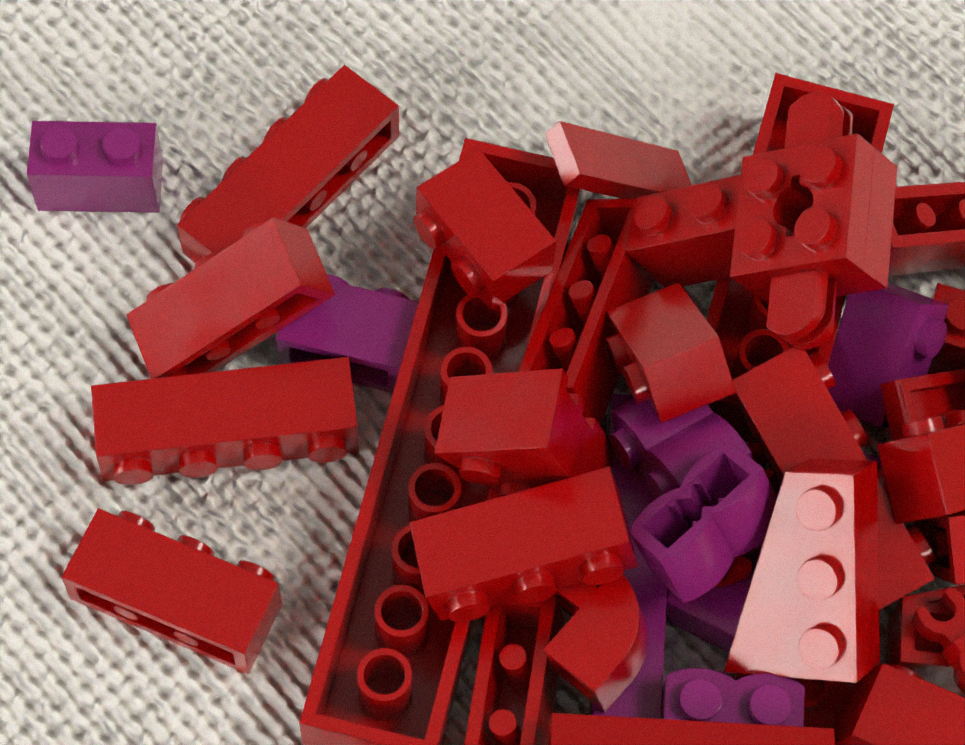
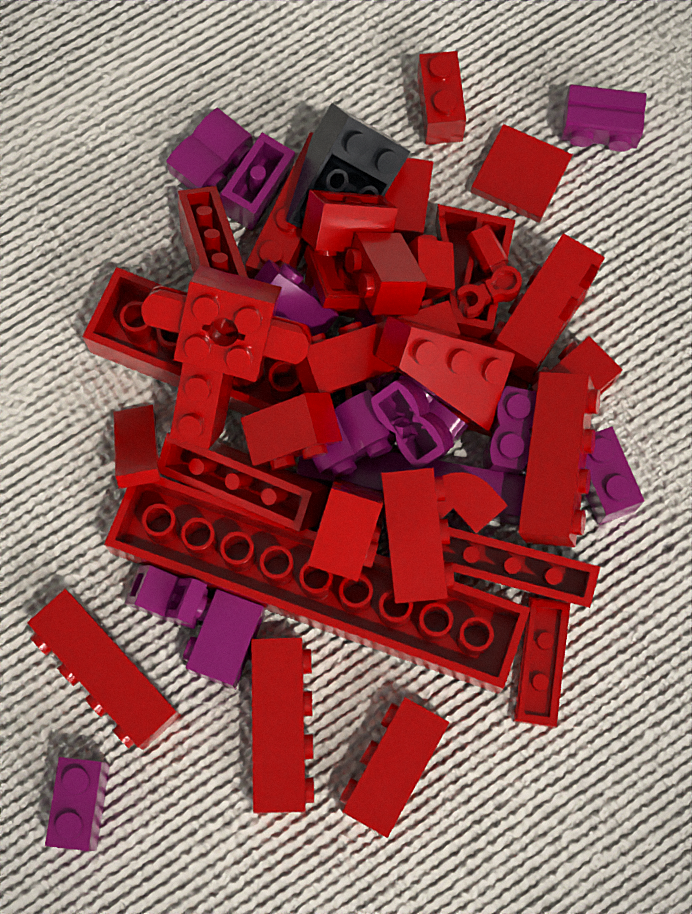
camera: 80 degrees left, 10 degrees up
(231, 301) = (205, 714): red brick -> none
(395, 252) = (167, 596): none -> magenta brick
(483, 230) = (185, 537): red brick -> none

